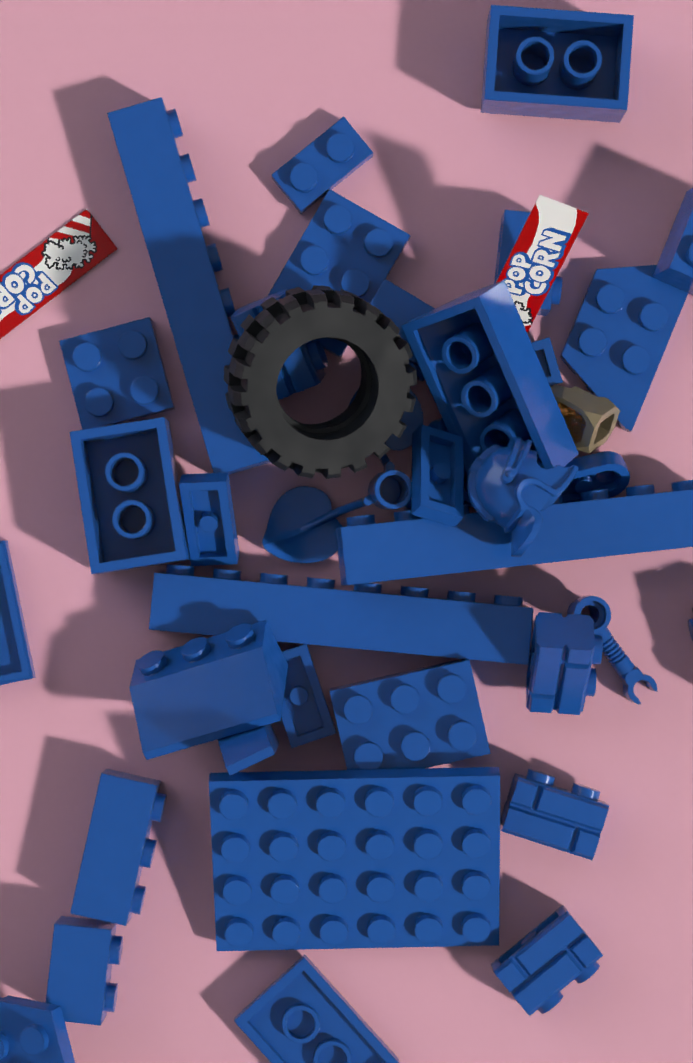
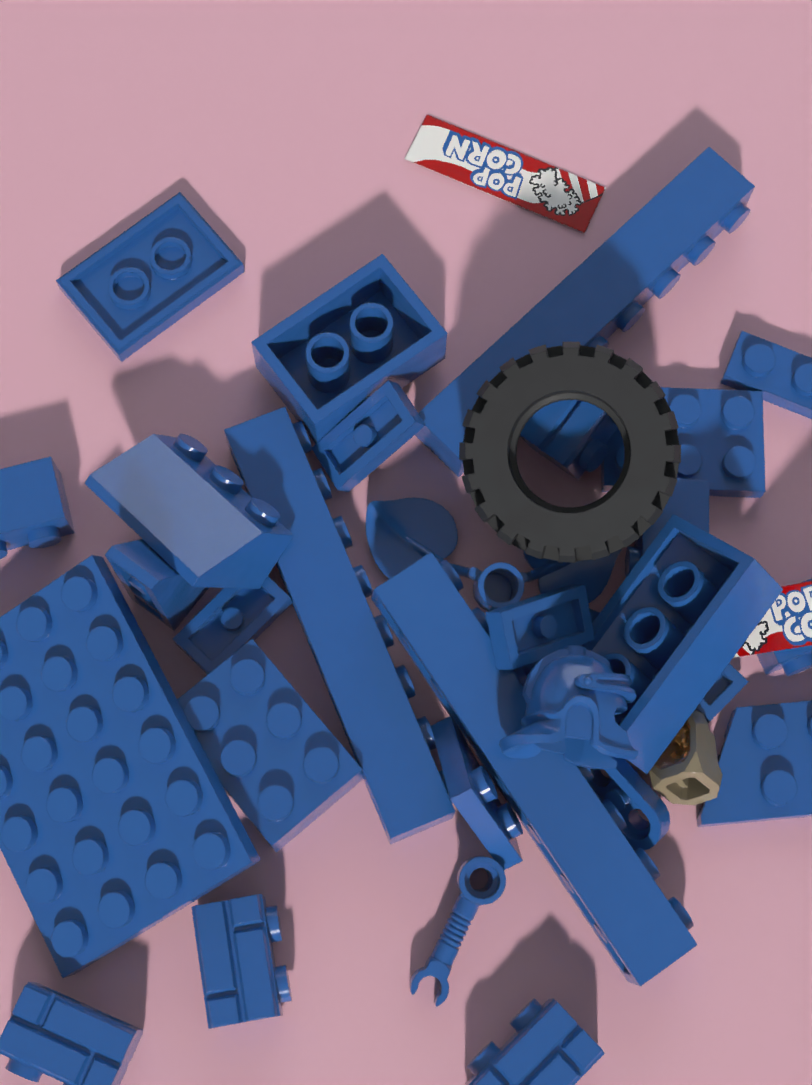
camera: 60 degrees right, 15 degrees down
(117, 374) = (468, 287): blue plate -> none
(528, 587) = (476, 795): none -> blue wing
(561, 663) = (410, 872): blue brick -> none

